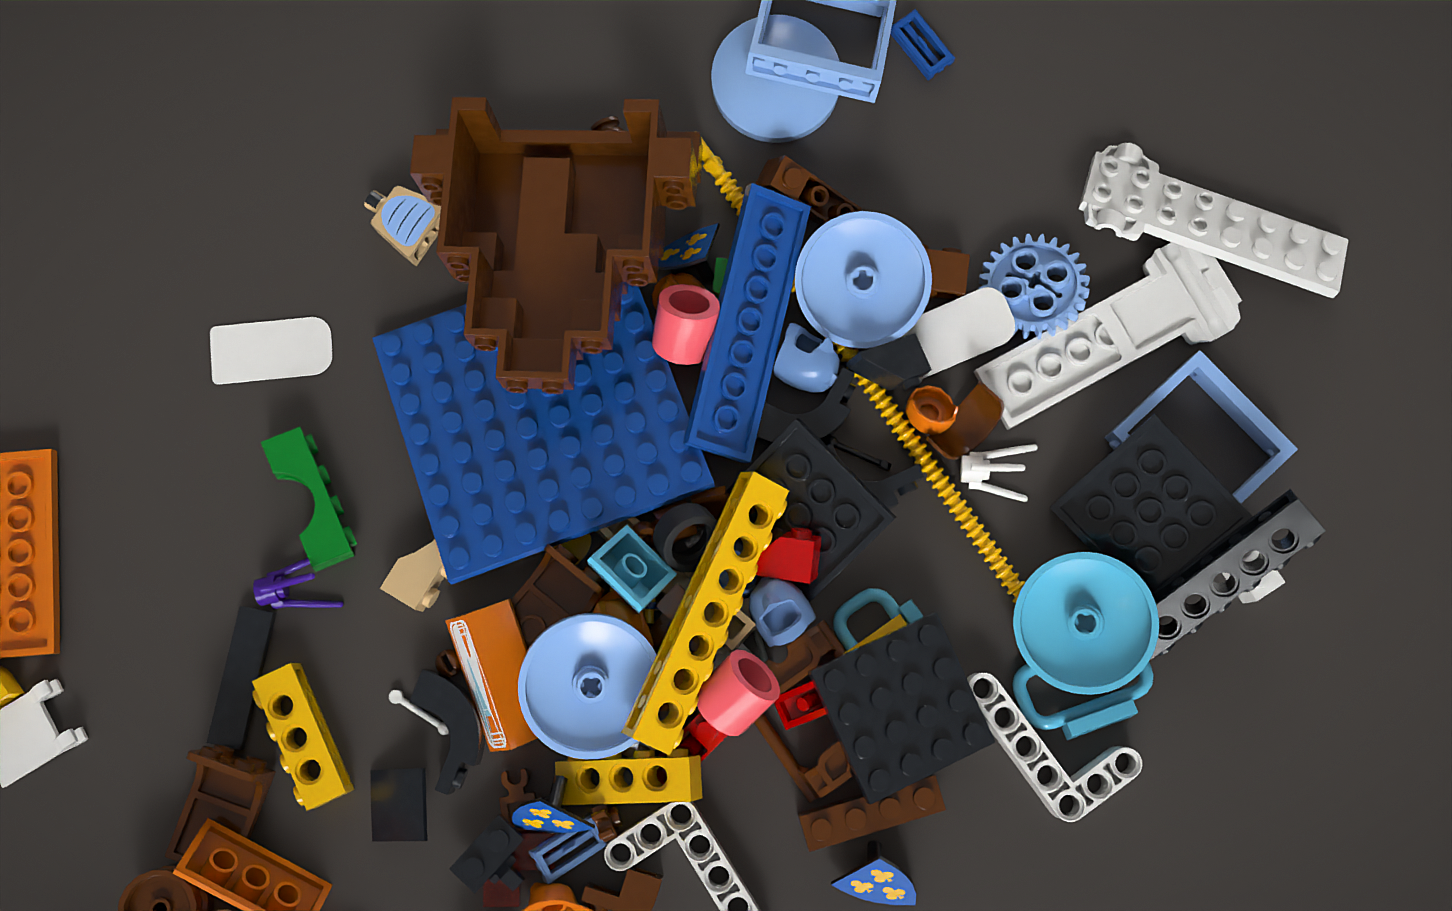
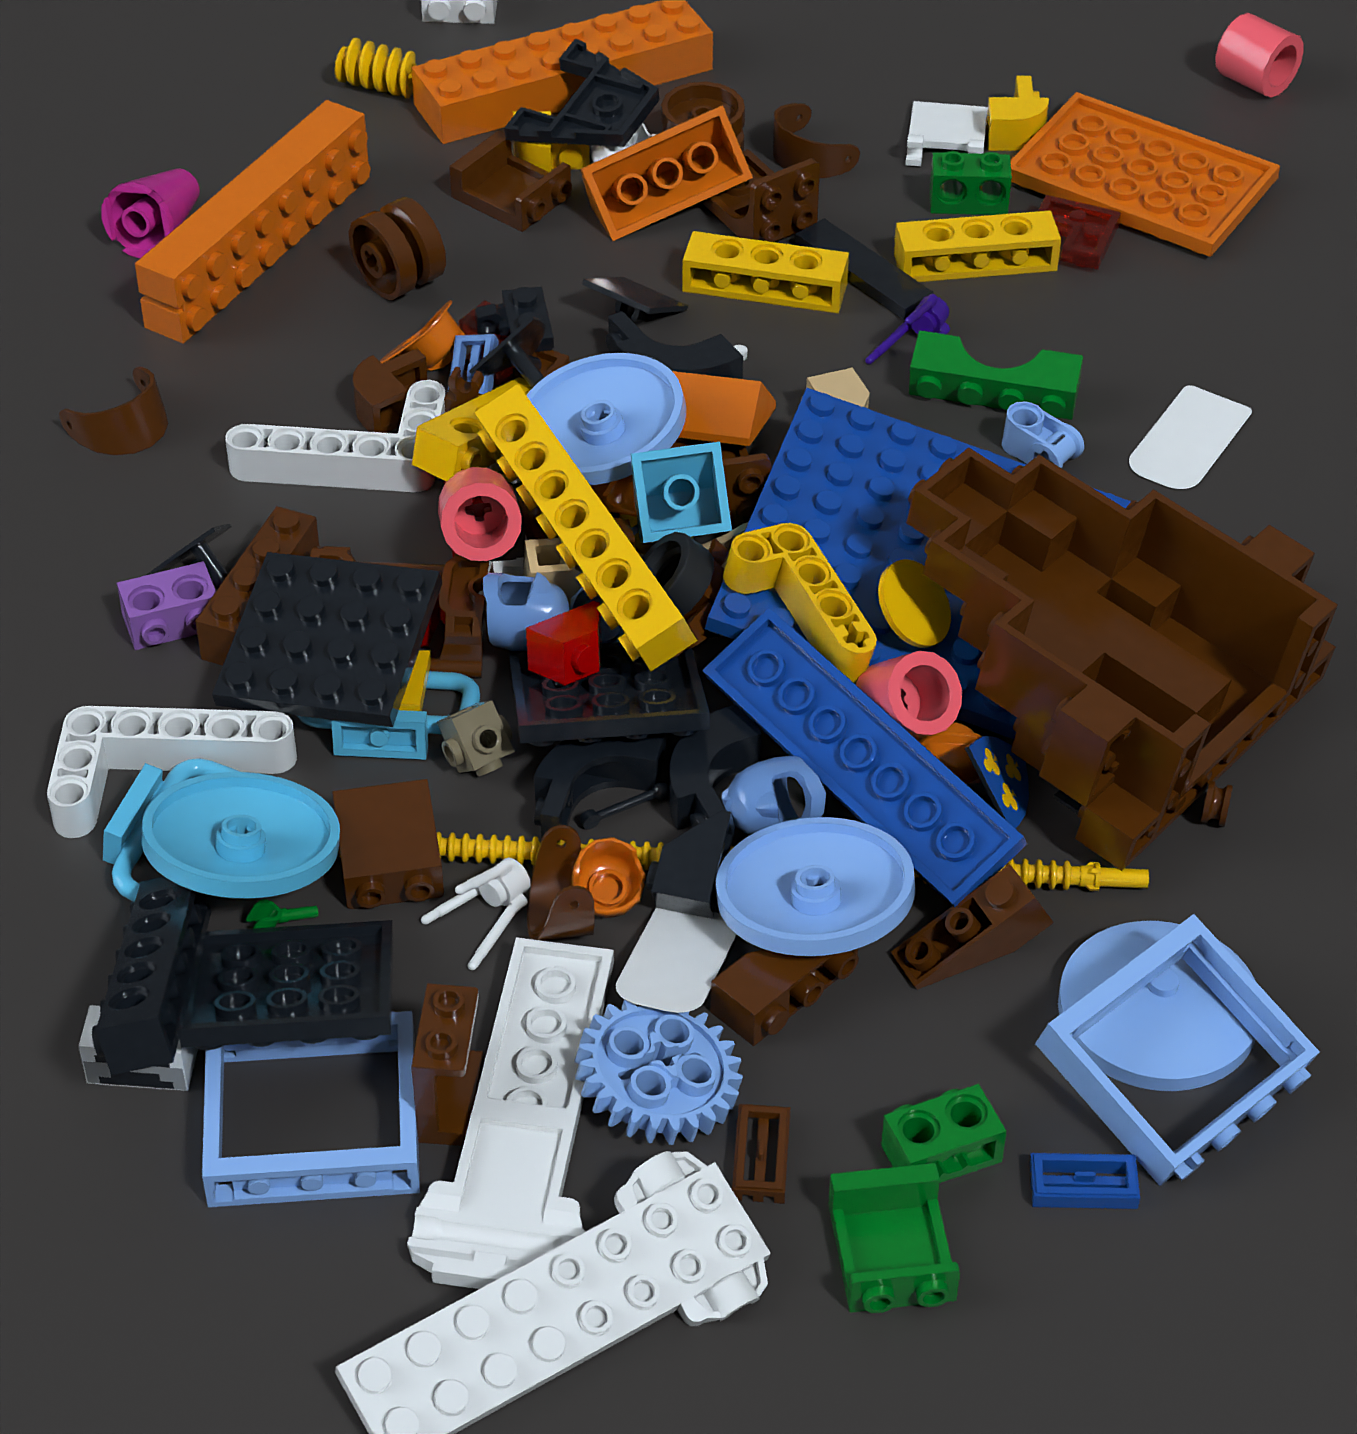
camera: 125 degrees right, 35 degrees down
(82, 555) = (1087, 230): none -> clear red plate
(93, 663) = (970, 183): none -> green brick
(145, 820) = (793, 149): none -> reddish brown piece
(208, 639) = (977, 246): none -> yellow brick
(353, 422) = (1035, 432): none -> light blue piece
(608, 369) = (914, 604): none -> yellow piece
(665, 422) = (795, 566): none -> yellow beam
(890, 567) = (476, 738): none -> dark tan brick
(924, 862) = (165, 604): none -> medium lavender brick
(963, 112) = (942, 1136): none -> green brick
(1003, 554) = (388, 844): none -> reddish brown panel
(1009, 222) = (760, 1187): none -> reddish brown tile
(1038, 103) = (892, 1238): none -> green panel
(1136, 378) = (444, 1066): none -> reddish brown panel

